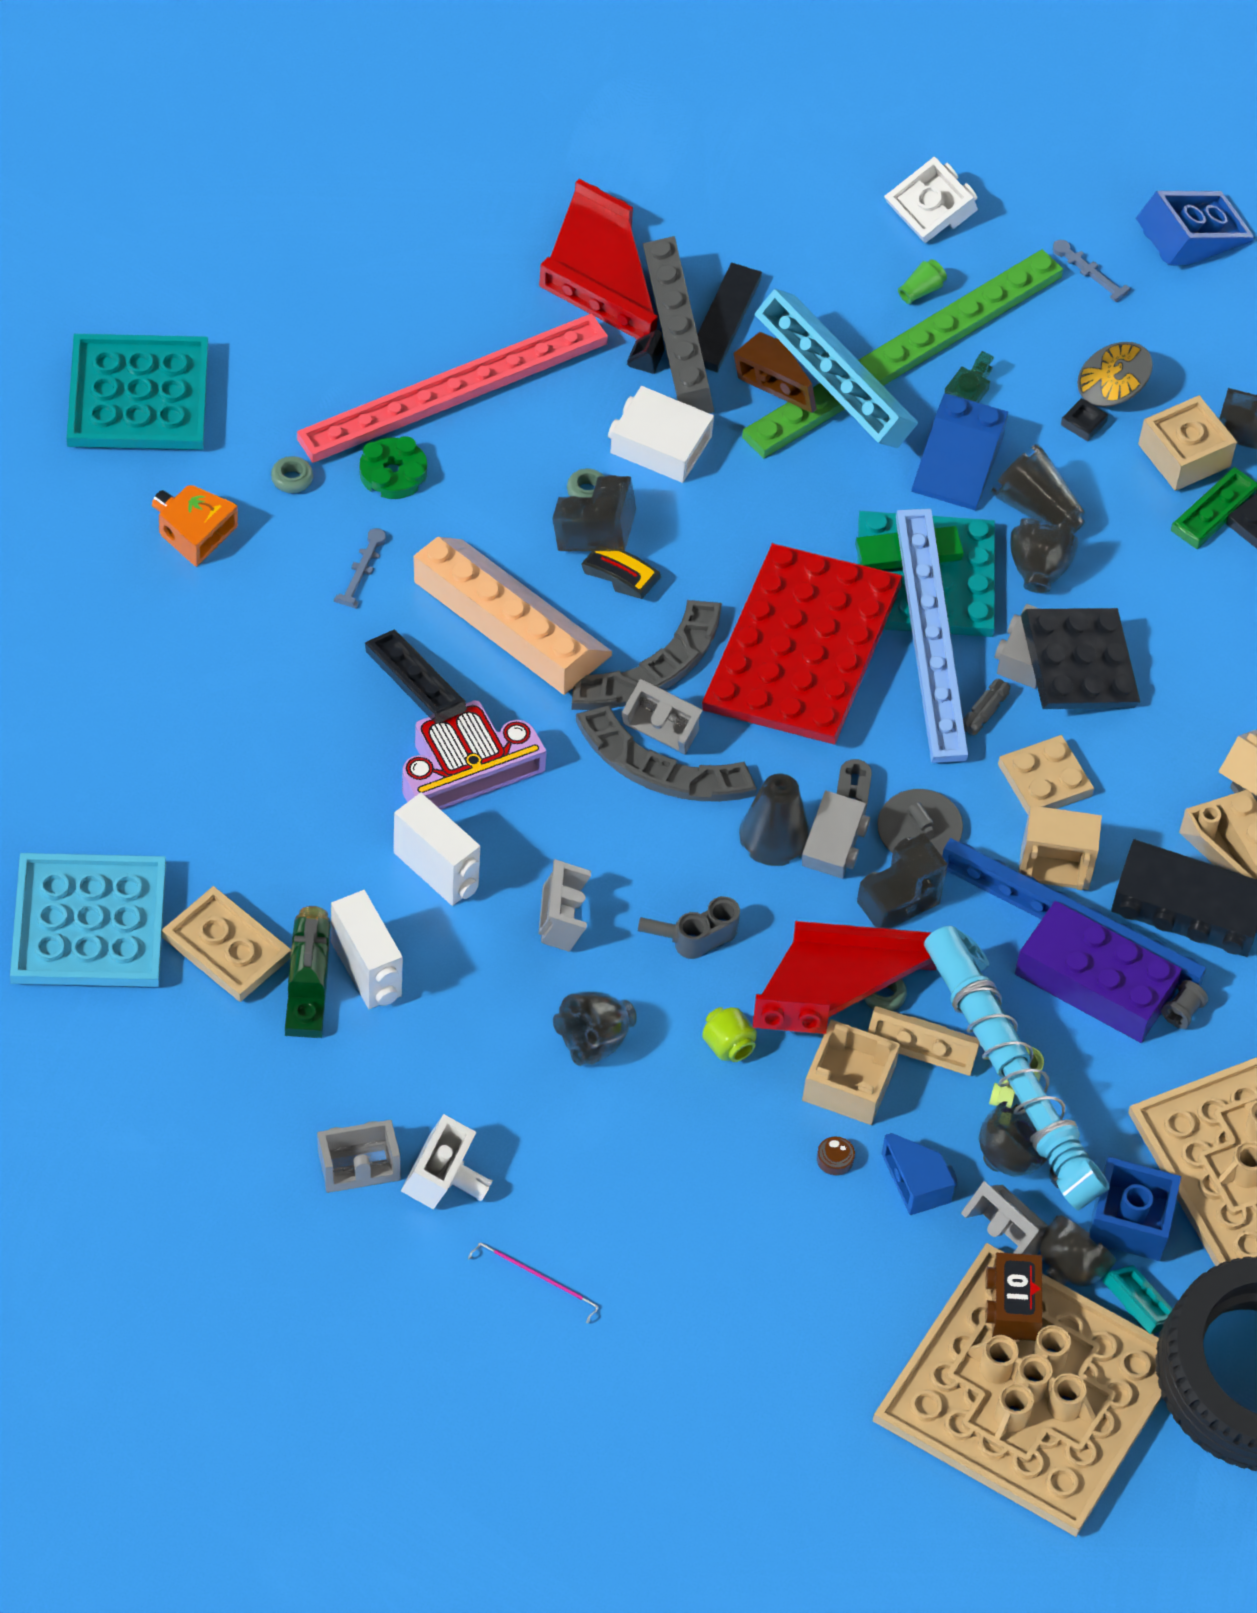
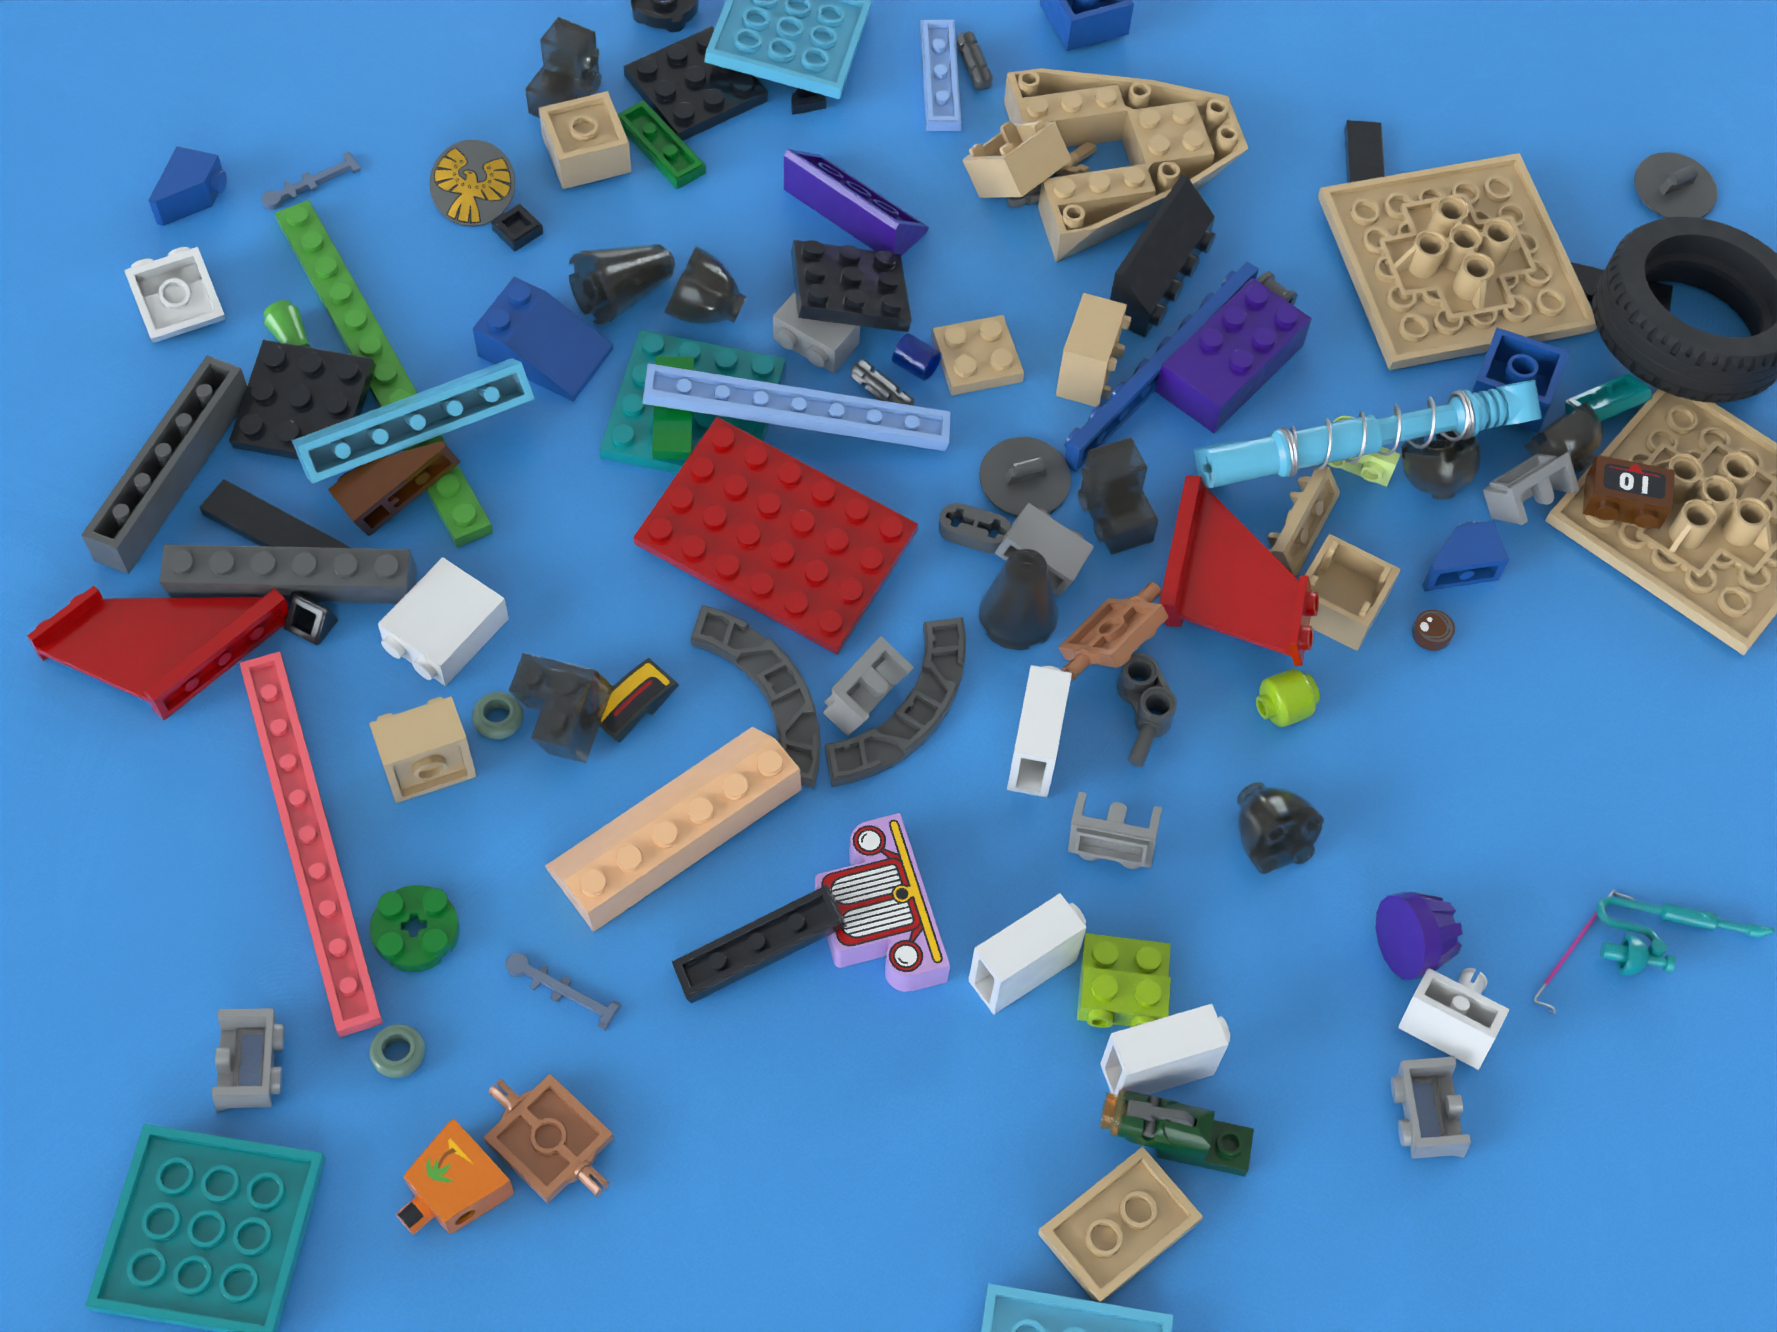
camera: 80 degrees left, 5 degrees up
(238, 573) = (548, 1138): none -> nougat plate
(267, 387) = (247, 1058): none -> light grey window
(434, 933) = (1123, 981): none -> lime plate
(512, 1132) = (1416, 933): none -> dark purple piece
(530, 1310) = (1635, 955): none -> teal piece
(535, 434) = (423, 749): none -> tan container
(646, 840) = (1039, 731): none -> white brick
(760, 229) = (166, 465): none -> dark grey brick
(765, 894) = (1114, 631): none -> nougat plate
(853, 300) = (296, 394): none -> black plate
(972, 384) = (442, 318): clear green plate -> none
(1024, 725) = (916, 357): none -> clear blue beam
(1048, 184) = (187, 185): none -> blue slope
(1191, 657) = (850, 203): none -> dark purple slope
(1192, 225) = (287, 79): blue slope -> none

